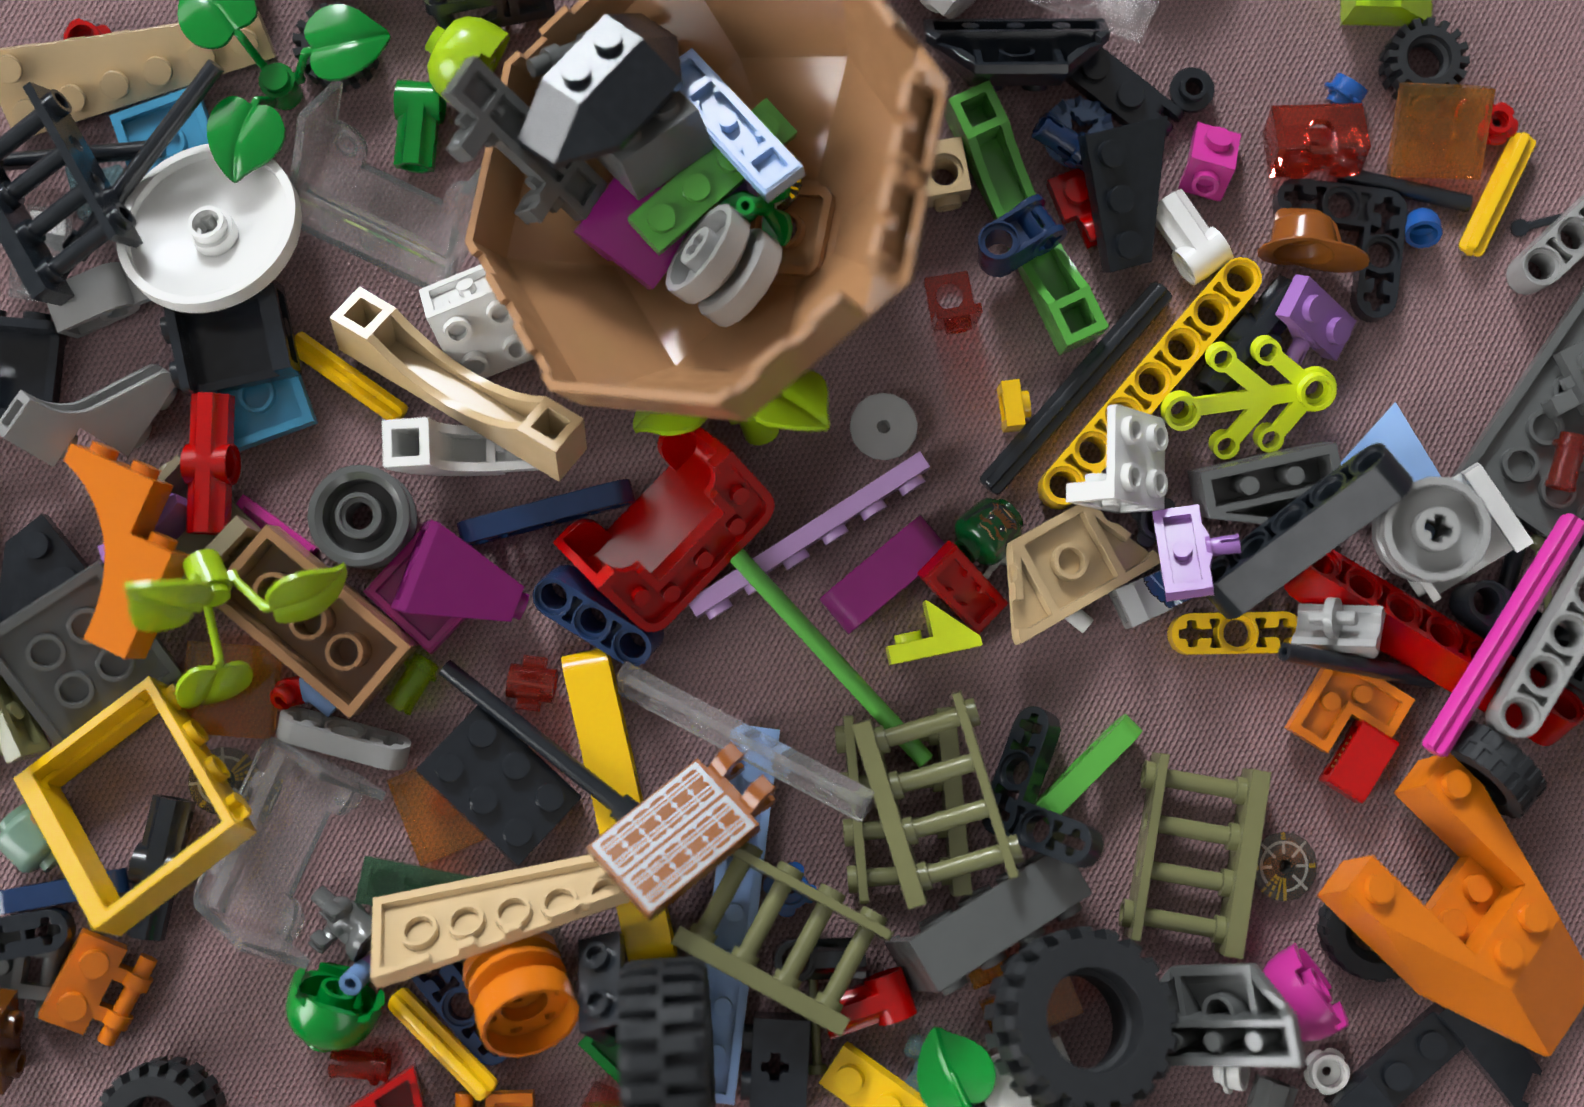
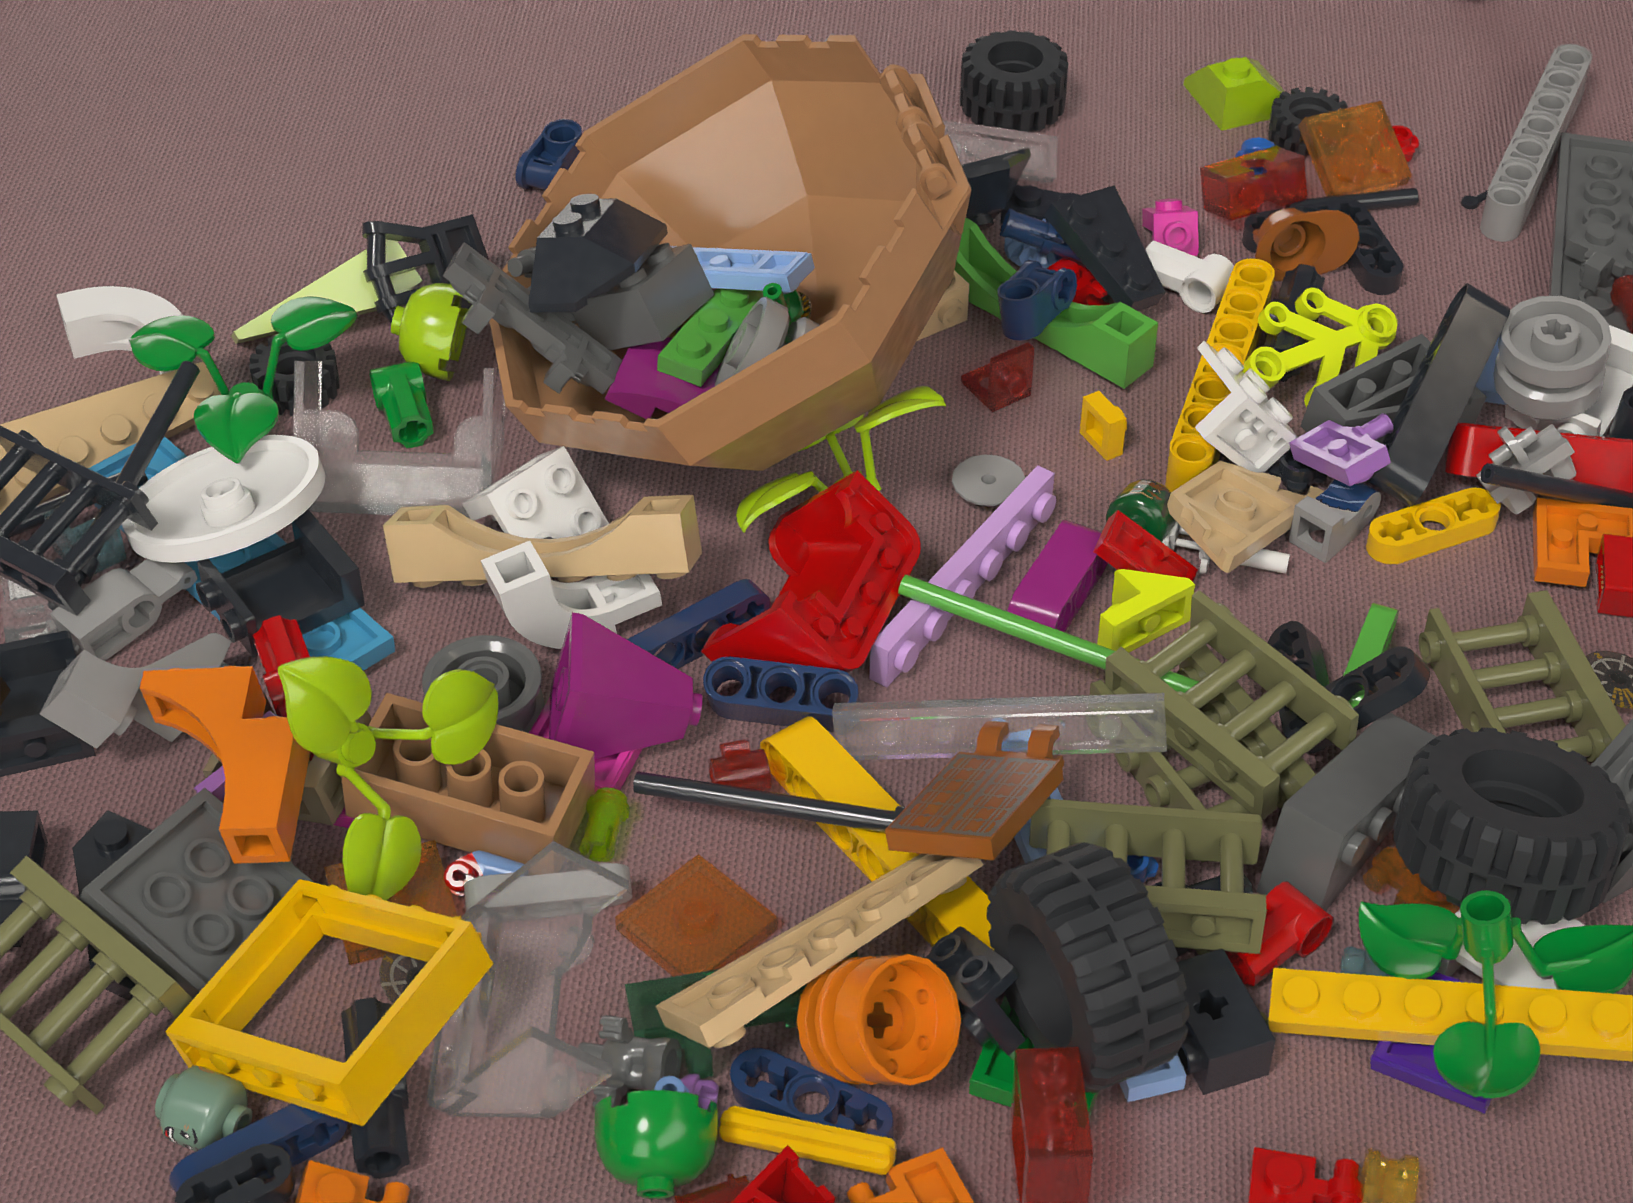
camera: 20 degrees left, 40 degrees down
(349, 378) = (425, 607): yellow axle -> none
(498, 784) = (745, 871): black plate -> none
(1075, 388) = (1155, 401): black axle -> none
(1186, 101) = (1129, 189): black plate -> none
(1313, 320) = (1330, 274): medium lavender plate -> none
(1423, 228) = (1393, 222): blue hinge -> none
(1497, 194) = (1434, 183): yellow axle -> none

